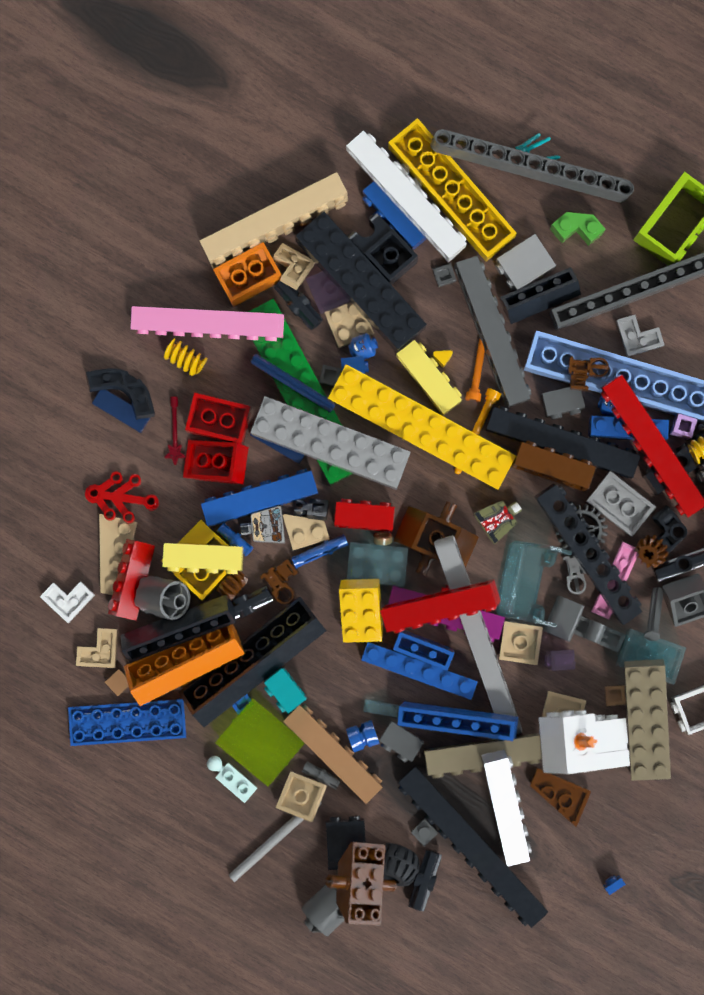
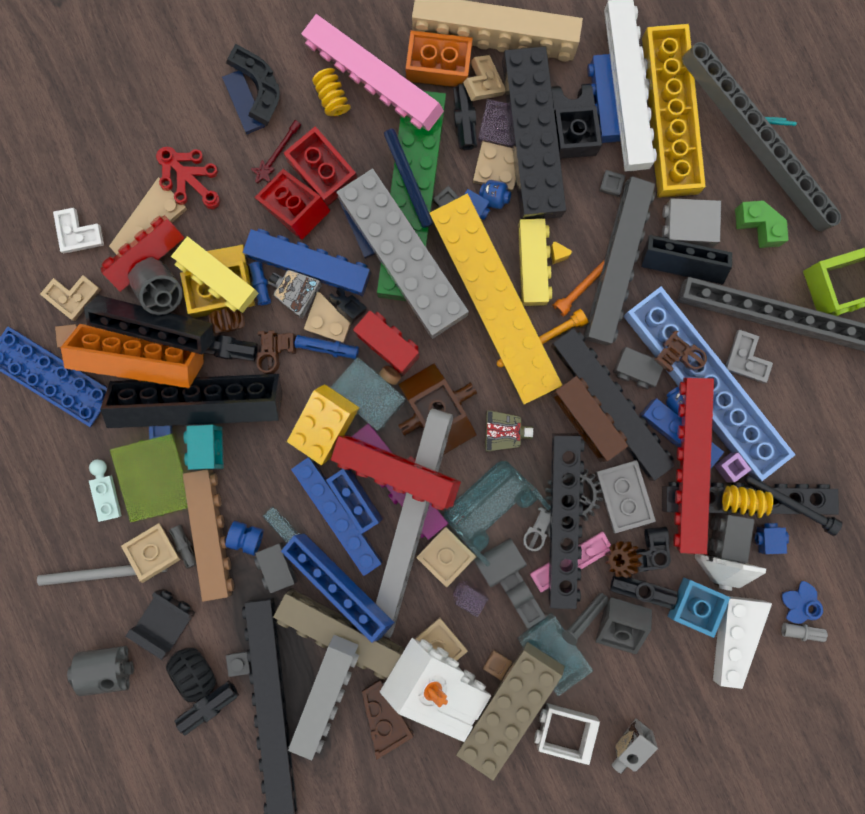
camera: 30 degrees right, 0 degrees up
(361, 883) = (138, 674): reddish brown slope -> none

